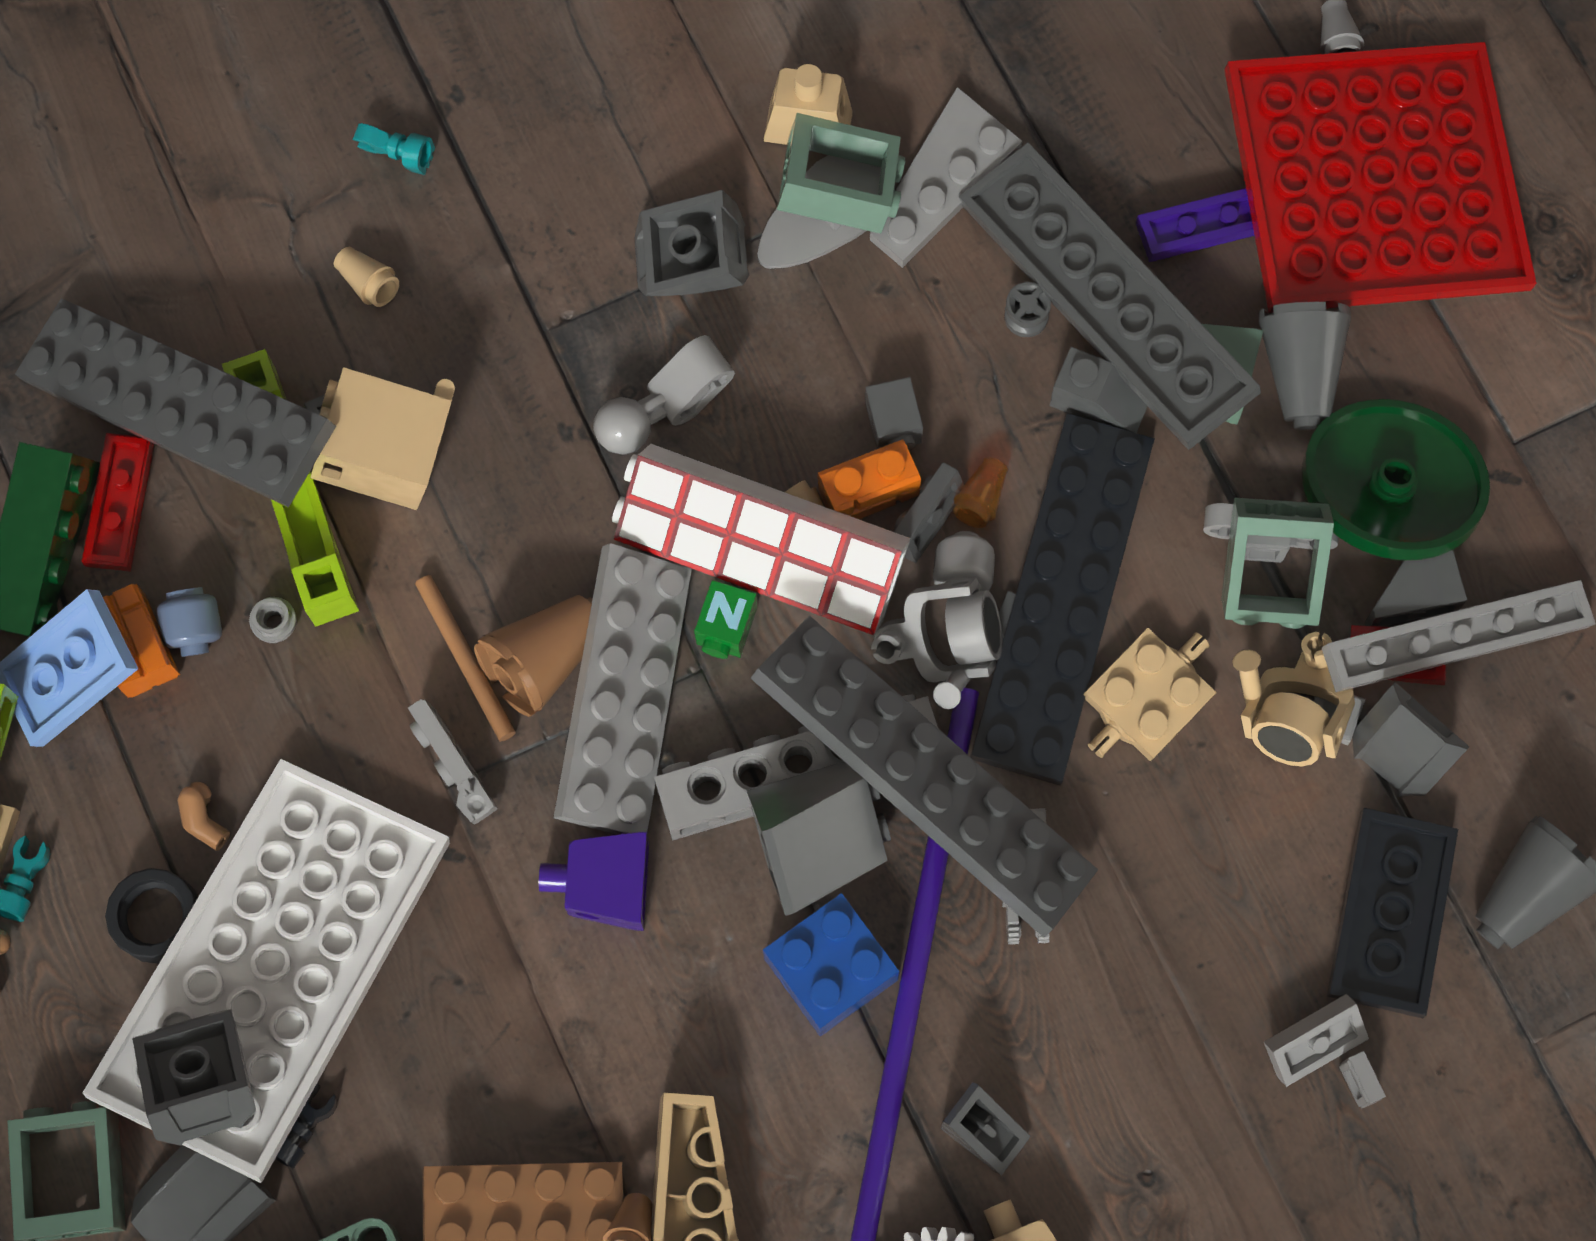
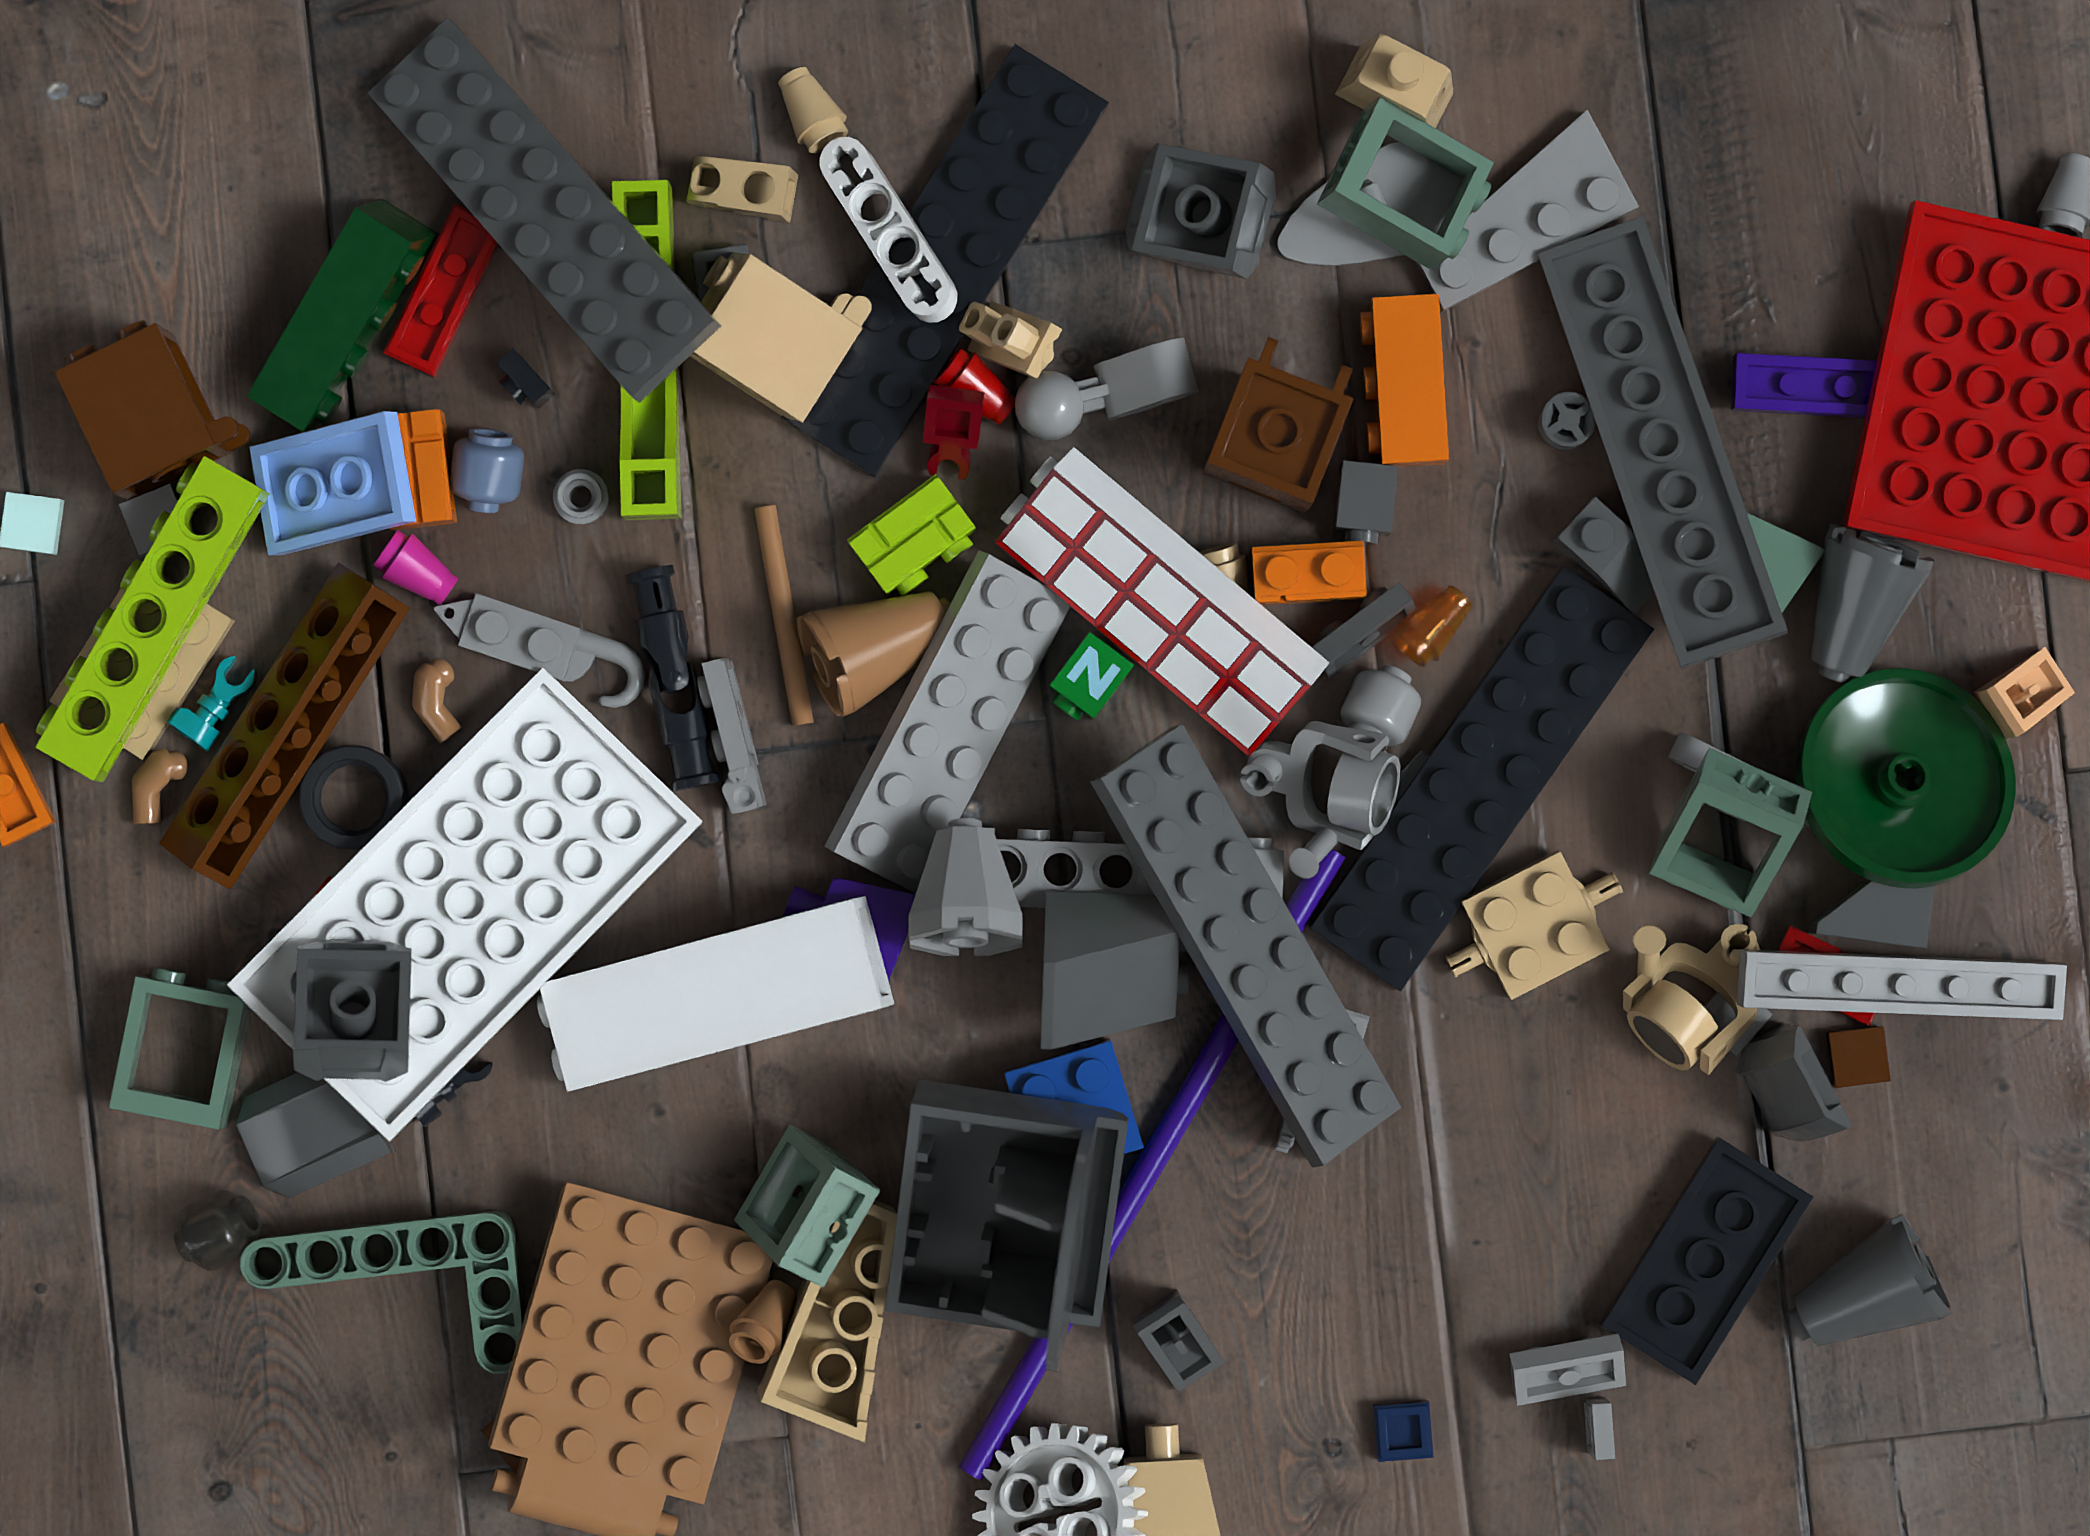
camera: 10 degrees right, 15 degrees up
(78, 875) = (284, 726): none -> reddish brown brick
(153, 717) = (415, 568): none -> dark pink cone
(200, 544) = (523, 381): none -> black plate
(264, 742) = (540, 643): none -> light grey plate
(330, 346) = (743, 187): none -> tan leg
(375, 710) = (665, 643): none -> black piece
(450, 339) = (890, 227): none -> white beam
(500, 968) = (715, 994): none -> white brick
(506, 353) = (974, 222): none -> black plate
(547, 559) = (913, 536): none -> lime brick
(550, 461) = (952, 426): none -> dark red plate
(559, 434) = (971, 373): none -> red cone
(574, 384) = (1010, 337): none -> tan hips
(645, 1094) = (797, 1226): none -> sand green window
(682, 813) = (965, 895): none -> light grey cone
(803, 1059) = (1006, 1211): none -> dark grey plate
(806, 377) = (1279, 432): none -> reddish brown container
(893, 318) = (1405, 380): none -> orange brick
(1200, 1142) = (1403, 1431): none -> dark blue tile
(1450, 706) = (1858, 1056): none -> reddish brown tile
(1458, 391) = (2025, 693): none -> light nougat slope

